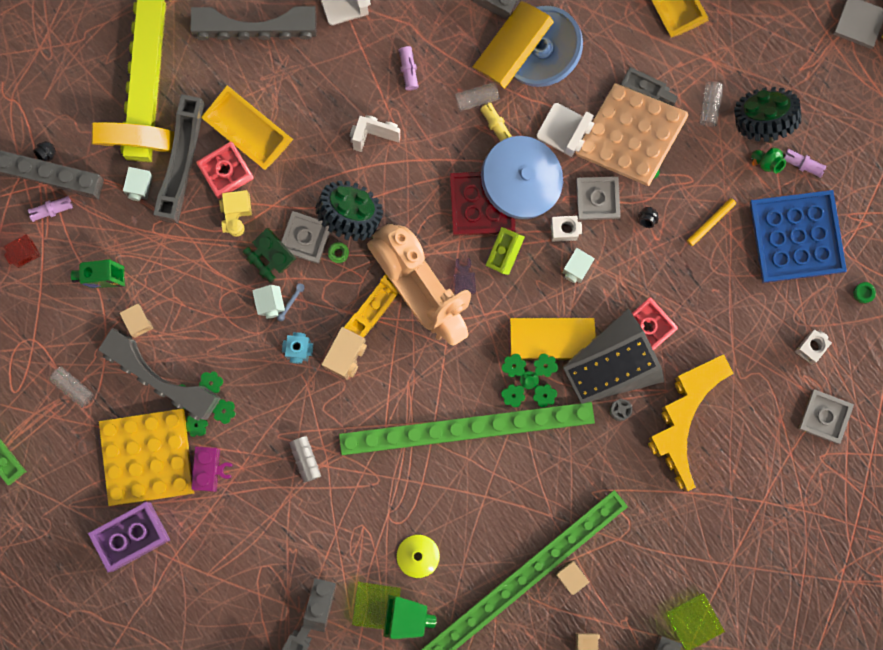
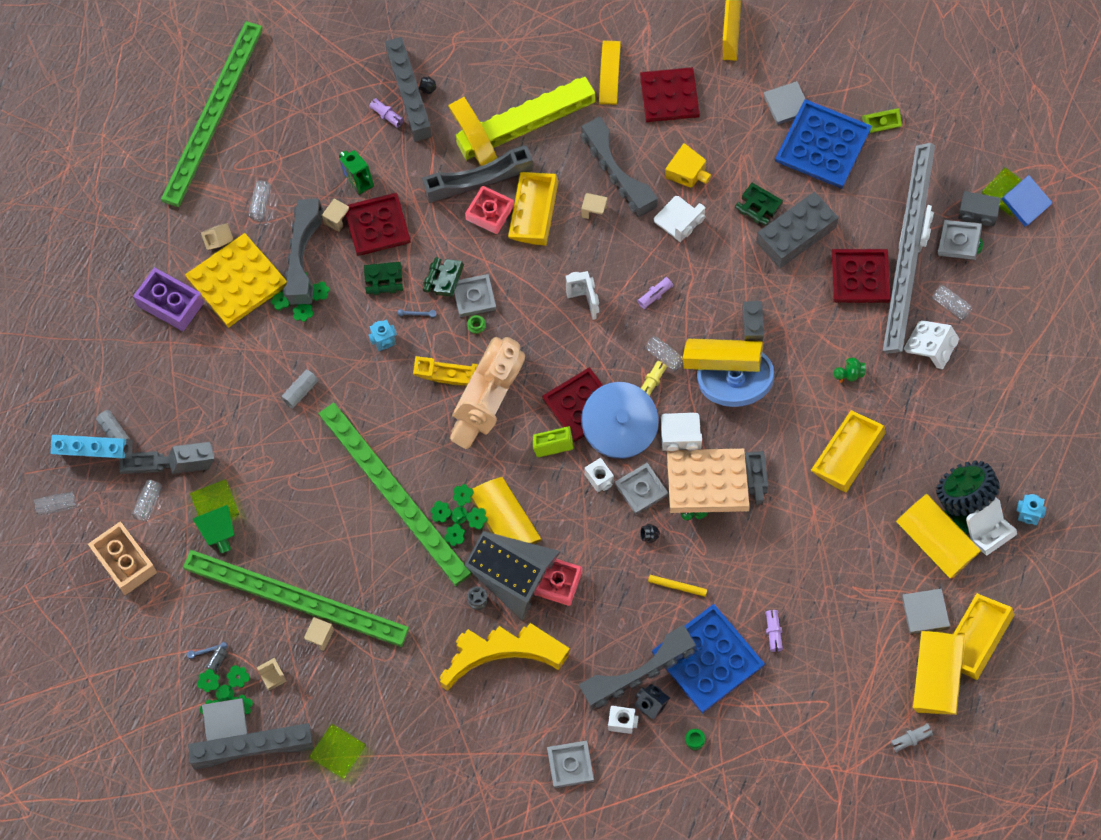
camera: 65 degrees right, 15 degrees down
(21, 251) = (342, 111): clear red brick -> none
(85, 451) = (217, 236): none -> tan panel
(137, 184) = (441, 158): light aqua brick -> none
(171, 286) = (377, 224): none -> dark red plate
(207, 469) = (251, 324): magenta brick -> none
(227, 311) = (383, 273): none -> dark green plate
(234, 206) = (465, 231): light yellow brick -> none
(268, 301) = (407, 295): light aqua brick -> none
(282, 70) = (593, 204): none -> tan panel
(343, 354) = (395, 365): tan brick -> none
(349, 210) = (510, 308): black wheel -> none
(429, 553) = (271, 521): neon yellow dish -> none
(464, 279) = (511, 427): plate -> none
(577, 266) = (574, 501): light aqua brick -> none
(711, 104) = (775, 530): clear axle -> none
(768, 114) = (790, 572): black wheel -> none
(769, 161) = (758, 600): green animal -> none
(775, 348) = (602, 688): none -> dark grey arch
(813, 310) = (651, 701): none -> black brick

